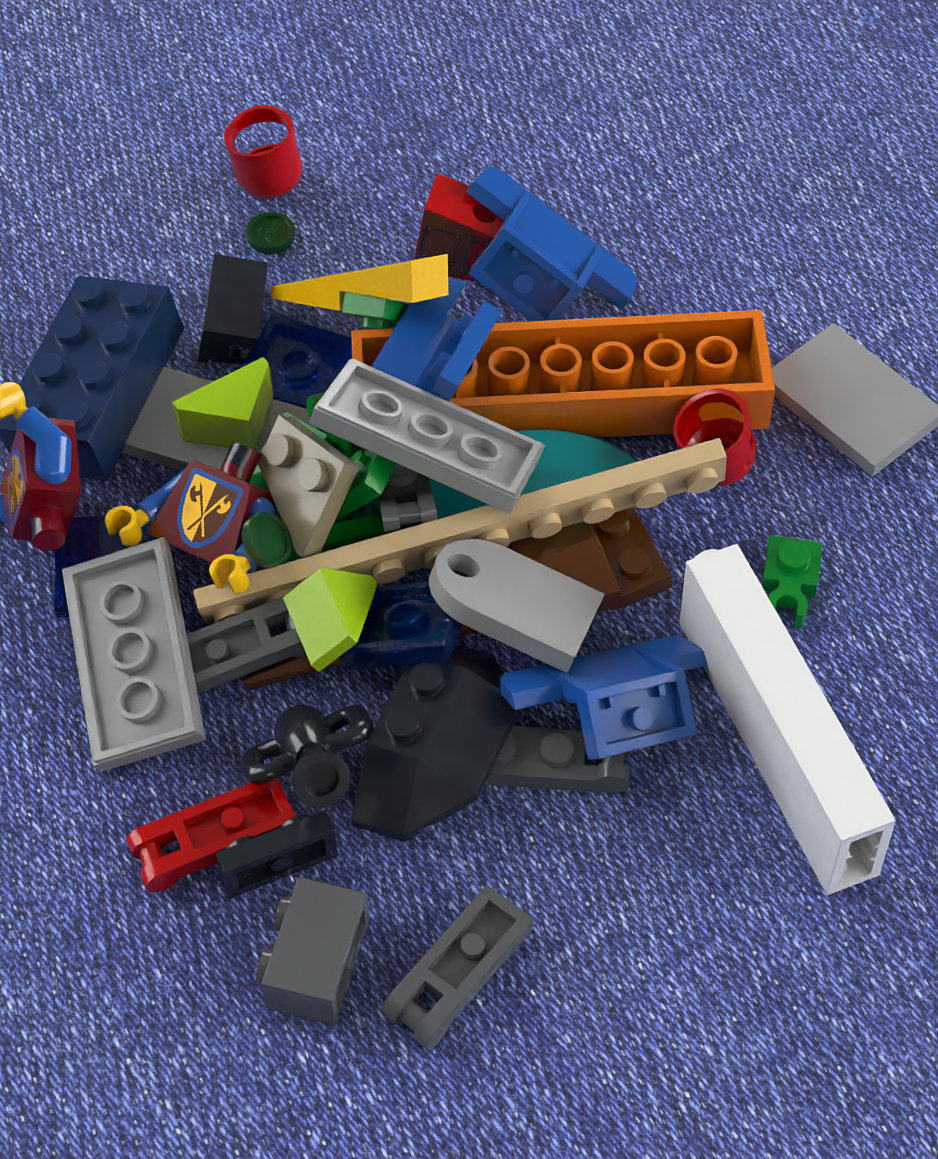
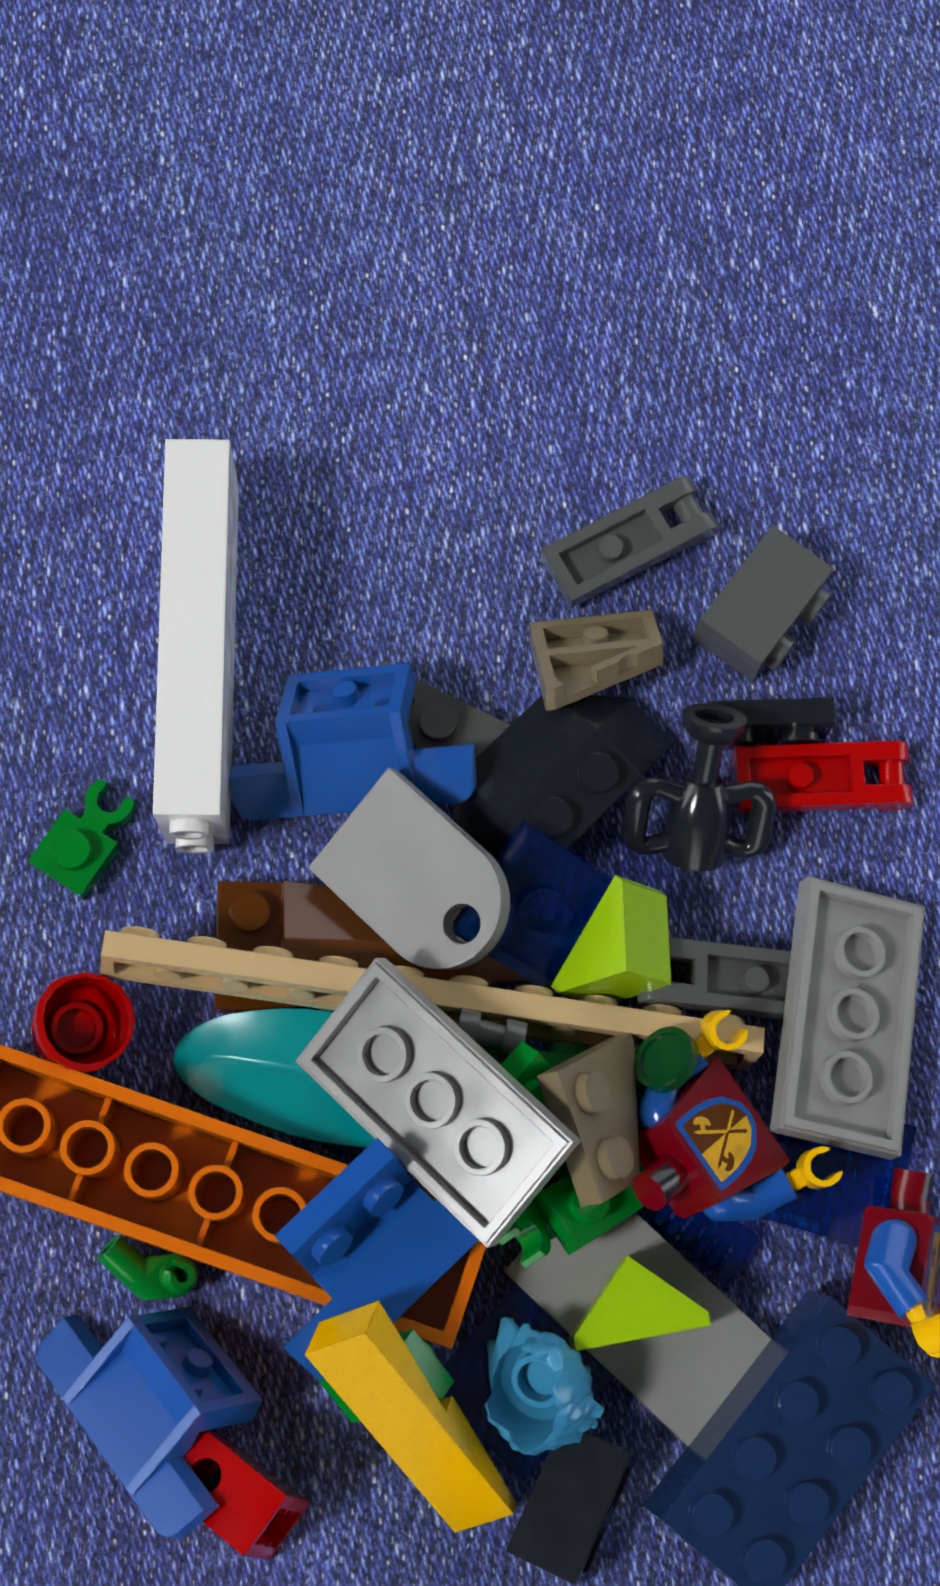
camera: 165 degrees left, 20 degrees up
(280, 336) = (538, 1389): none -> dark azure hair
(450, 844) = (592, 653): none -> dark tan wing

